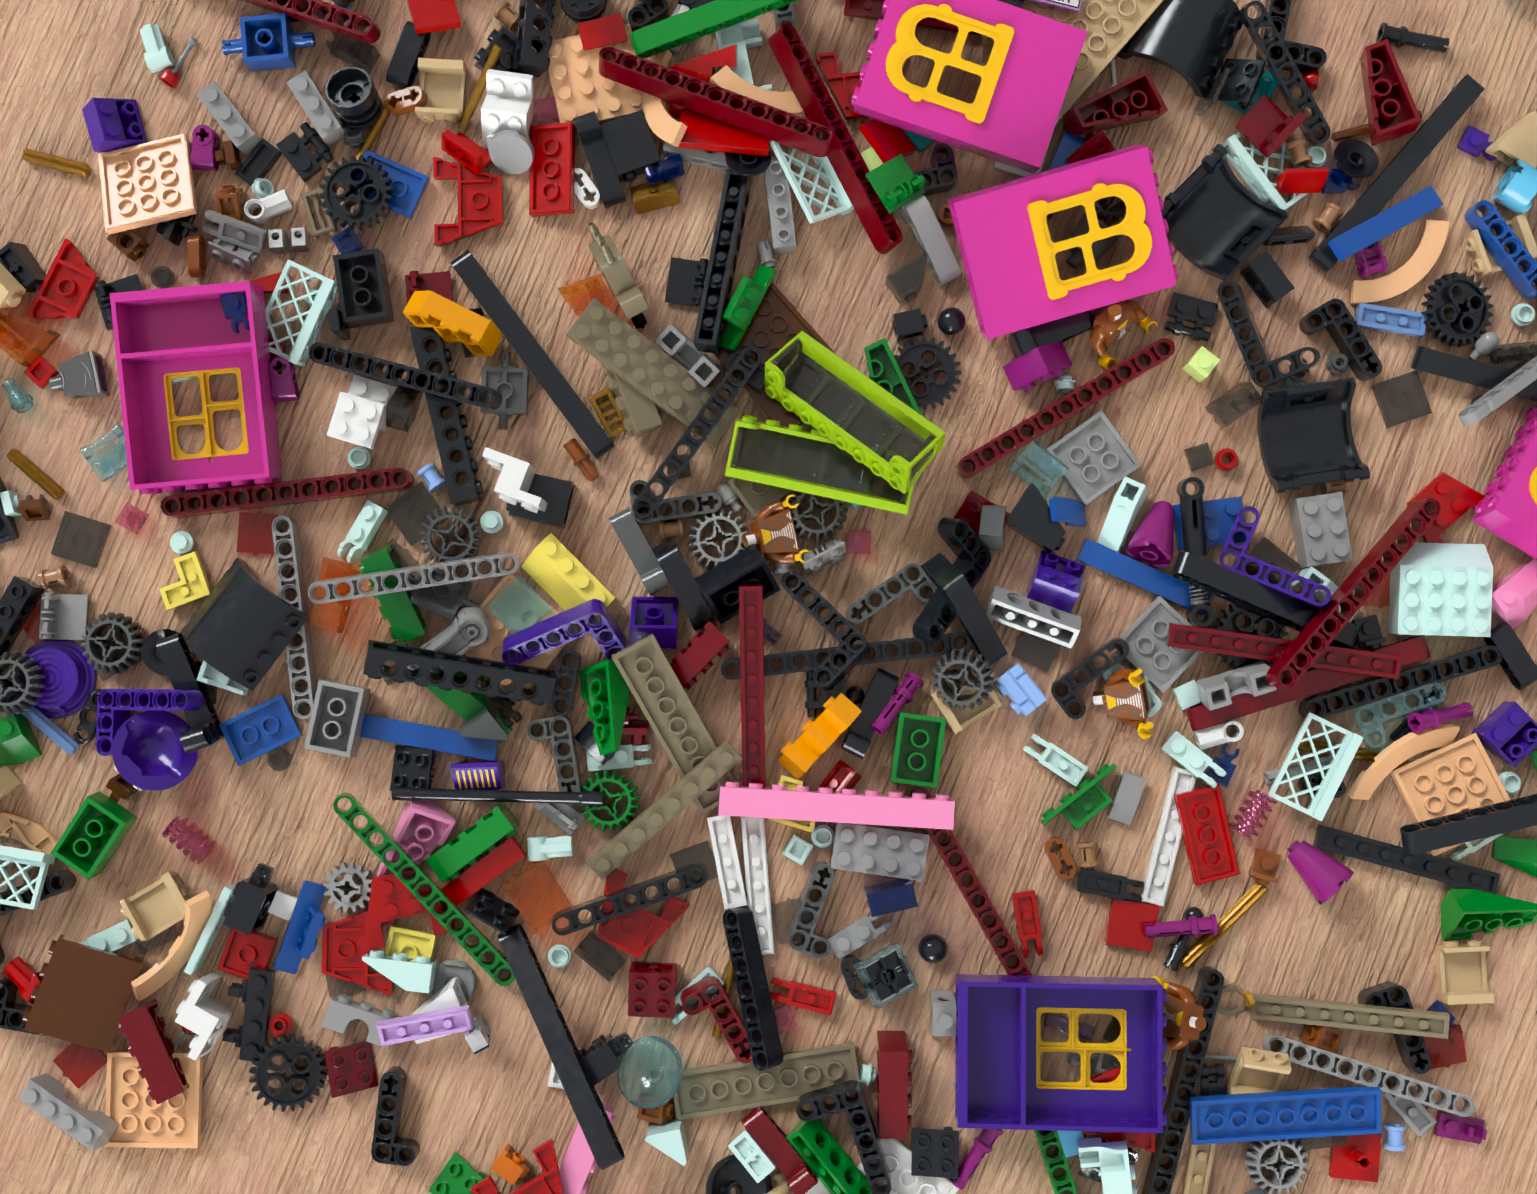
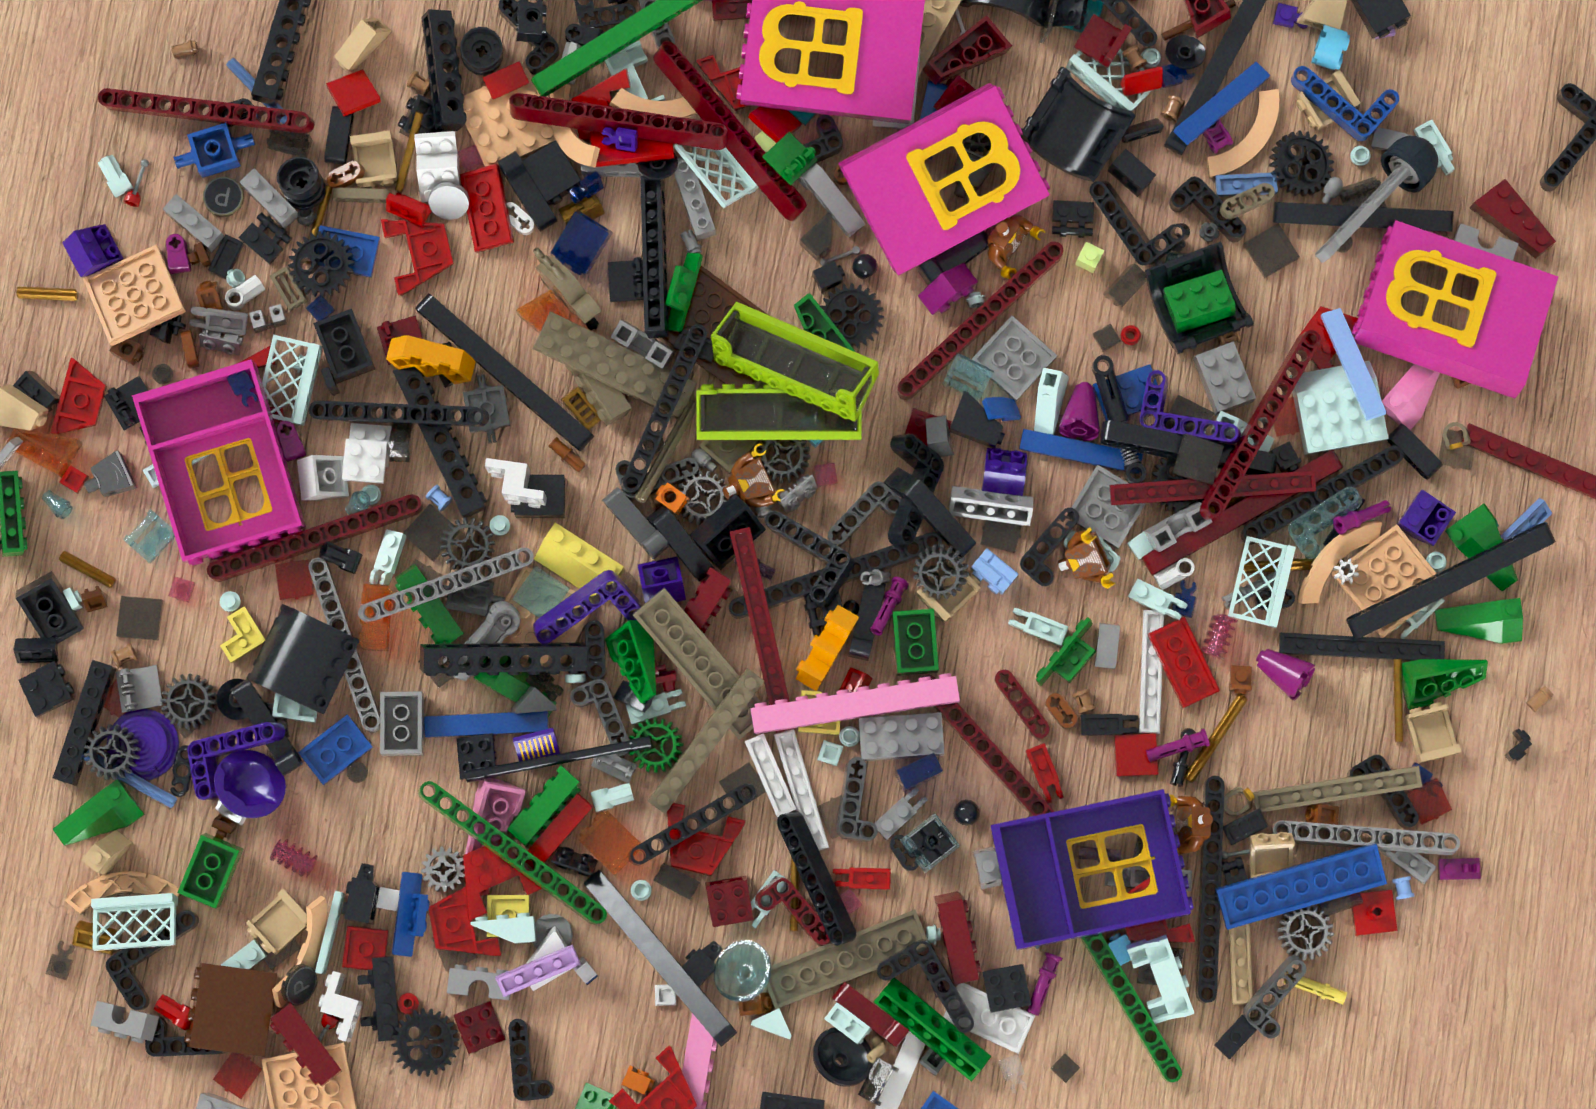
camera: 15 degrees left, 5 degrees down
(164, 981) = (299, 984): none -> tile
(269, 96) = (223, 196): none -> black tile
(307, 428) = (321, 477): none -> white slope
(314, 522) = (344, 558): none -> black piece
(341, 464) = (359, 501): none -> clear light blue cone
(416, 125) = (360, 195): none -> dark tan beam
(537, 709) = (575, 678): none -> light aqua tile
(646, 229) = (581, 243): none -> clear blue brick
(688, 481) = (666, 452): none -> dark tan axle
(690, 541) = (678, 504): none -> orange brick
(716, 121) = (623, 138): none -> dark purple plate
(888, 669) = (875, 577): none -> light grey axle
(944, 302) = (856, 250): none -> light grey hinge
(1021, 840) = (1020, 705): none -> dark red beam
(1236, 1031) = (1245, 826): none -> black plate
(1276, 616) = (1198, 459): none -> clear smoke tile
(1314, 439) = (1199, 301): none -> green brick
(1397, 332) = (1242, 208): none -> dark tan beam
(1404, 777) = (1352, 573): none -> white gear
(1434, 927) = (1398, 700): none -> pearl gold bar
(1471, 547) = (1353, 364): none -> light blue tile

